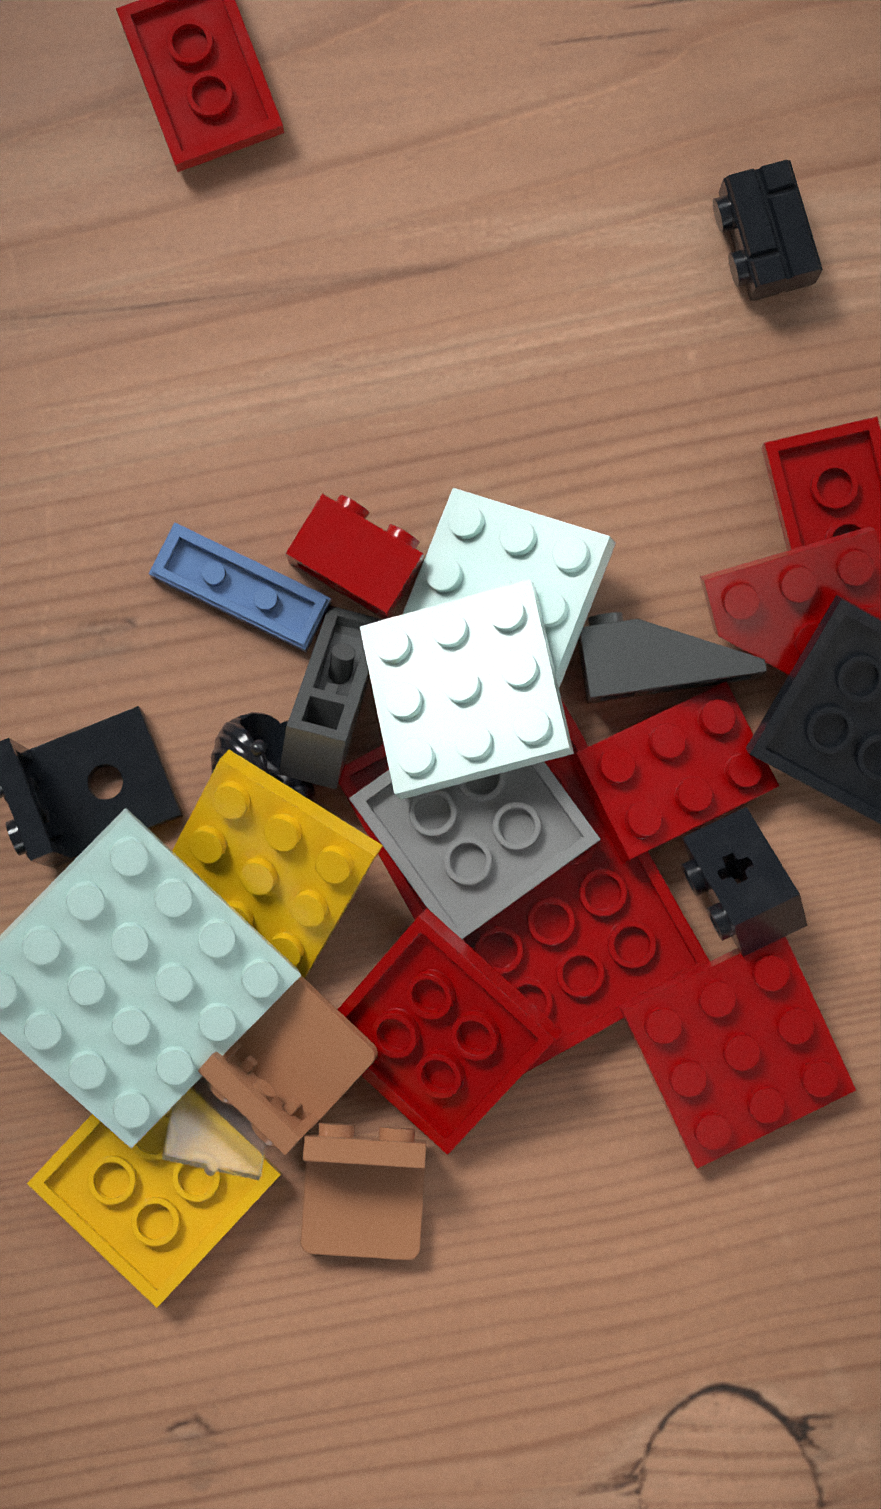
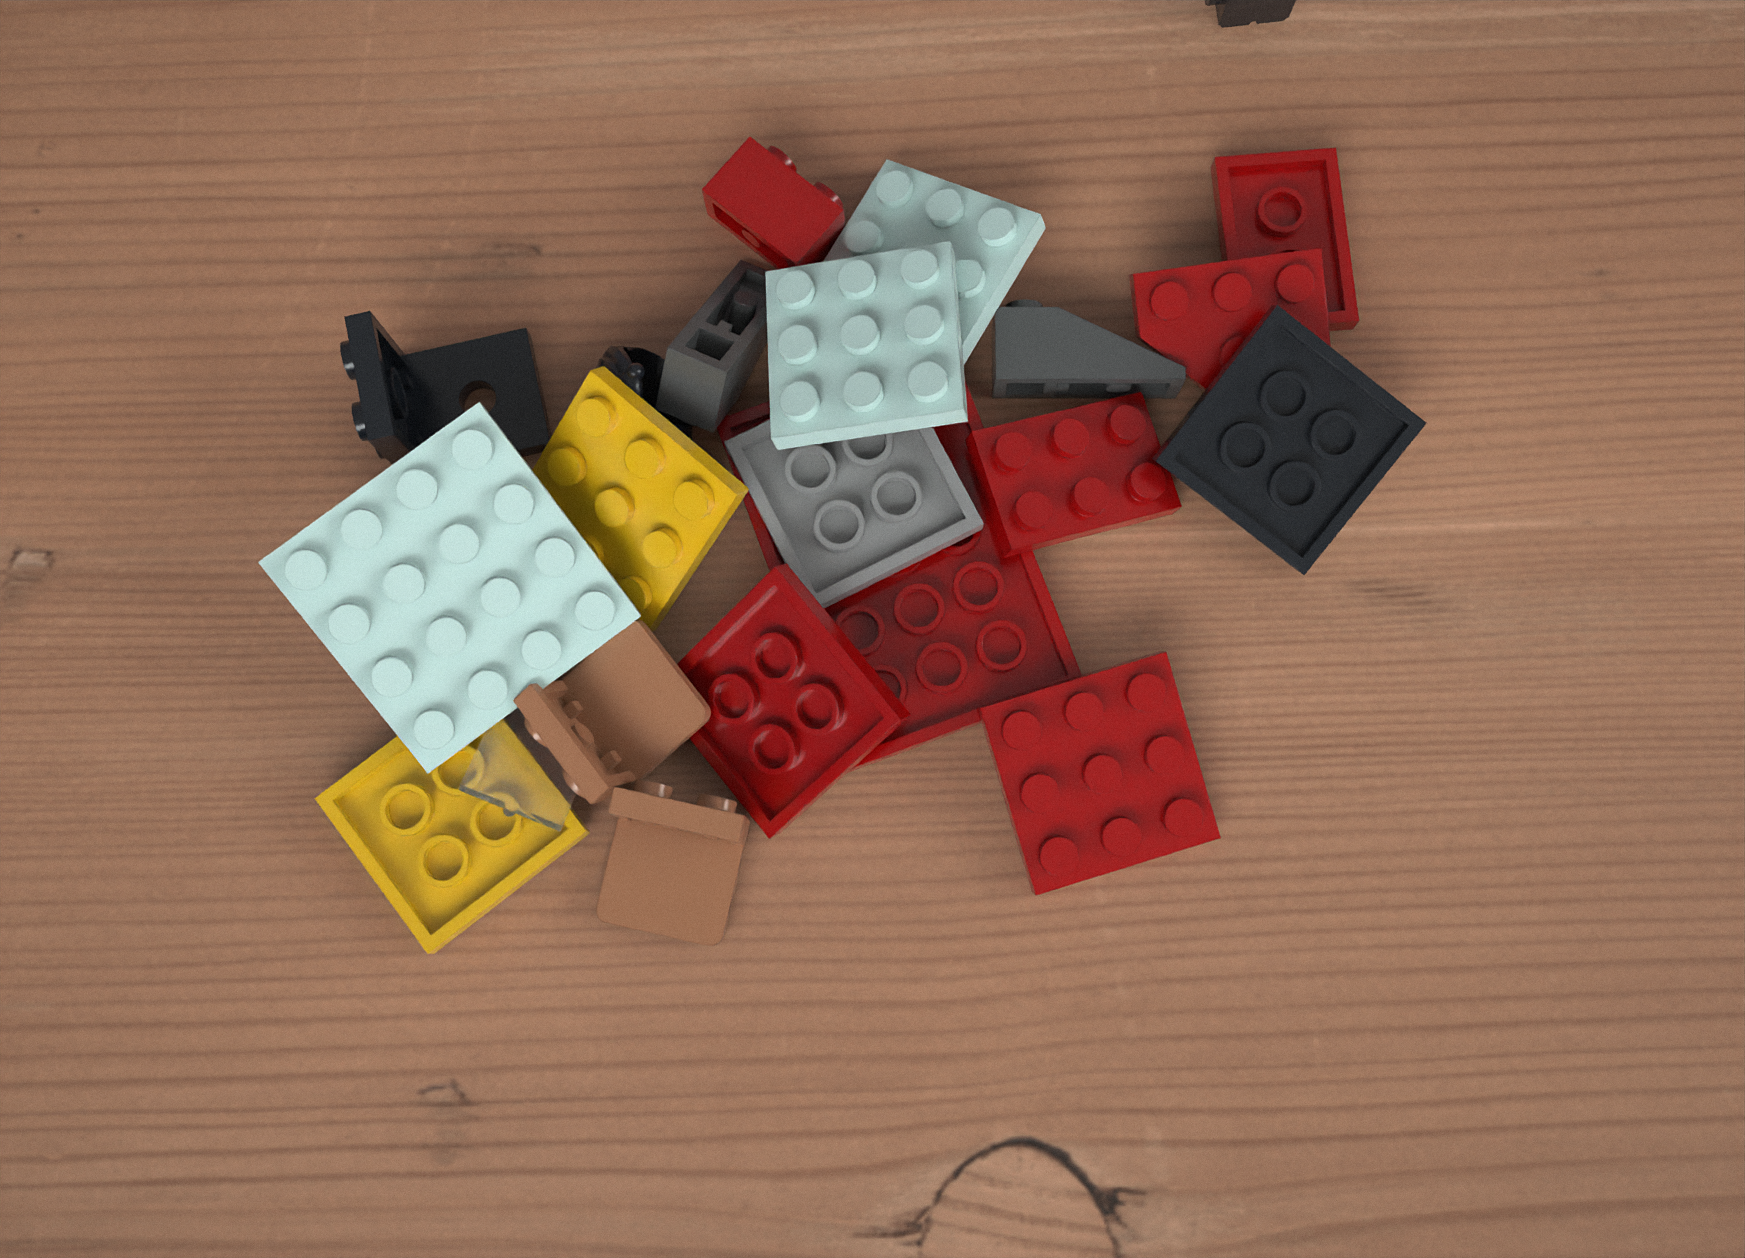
camera: 10 degrees right, 5 degrees down
(240, 587) = (651, 227): medium blue tile -> none
(744, 882) = (1130, 594): black brick -> none

